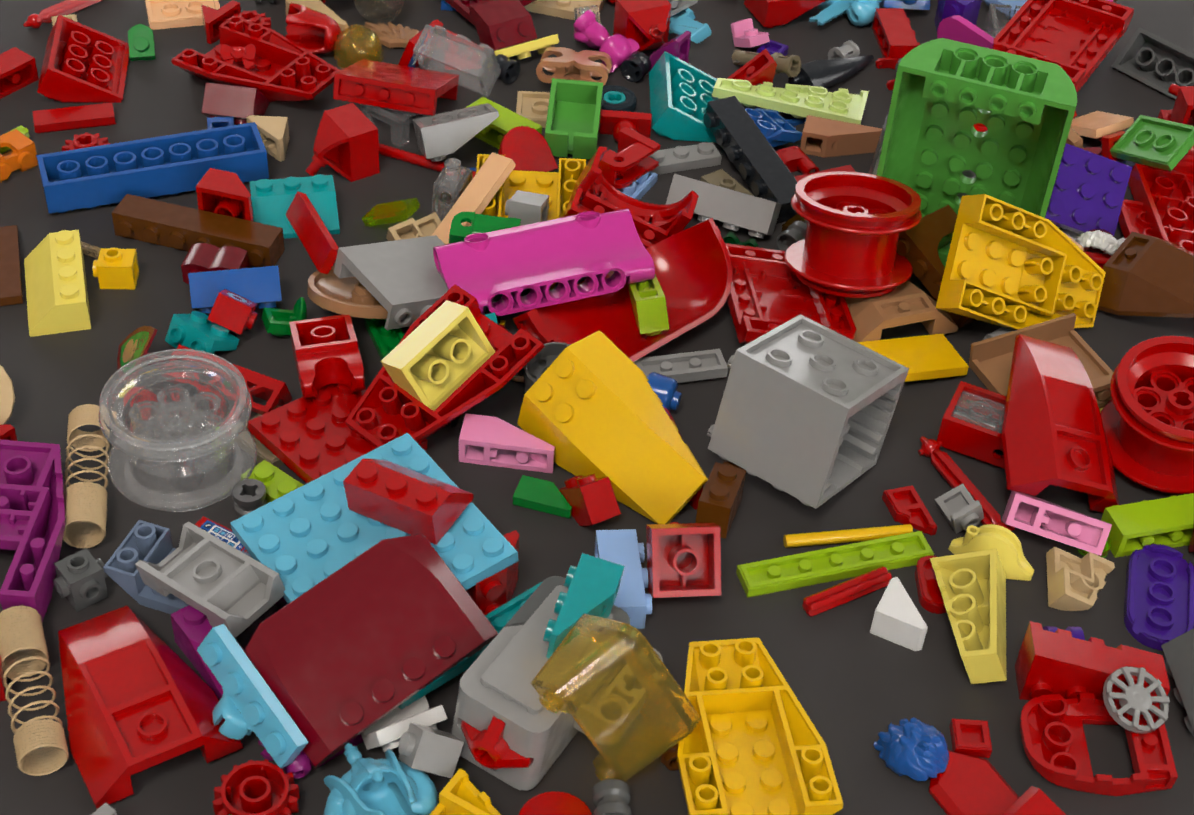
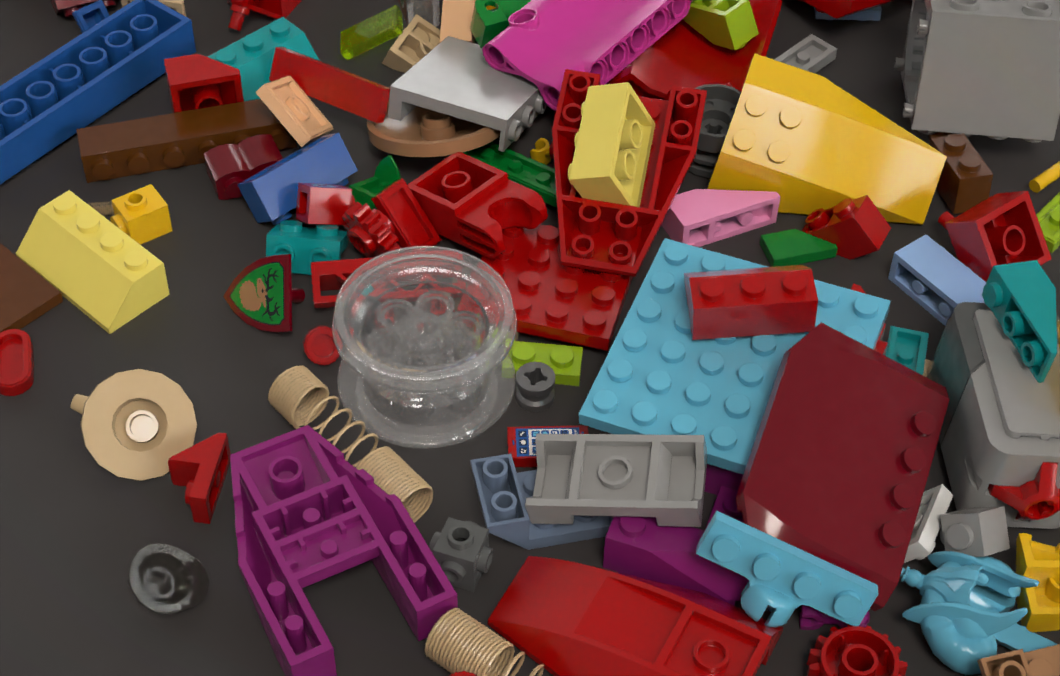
camera: 30 degrees left, 5 degrees up
(242, 343) = (370, 230): none -> red gear
(273, 240) = (294, 110): none -> light nougat tile
(275, 346) = (406, 215): none -> red tile

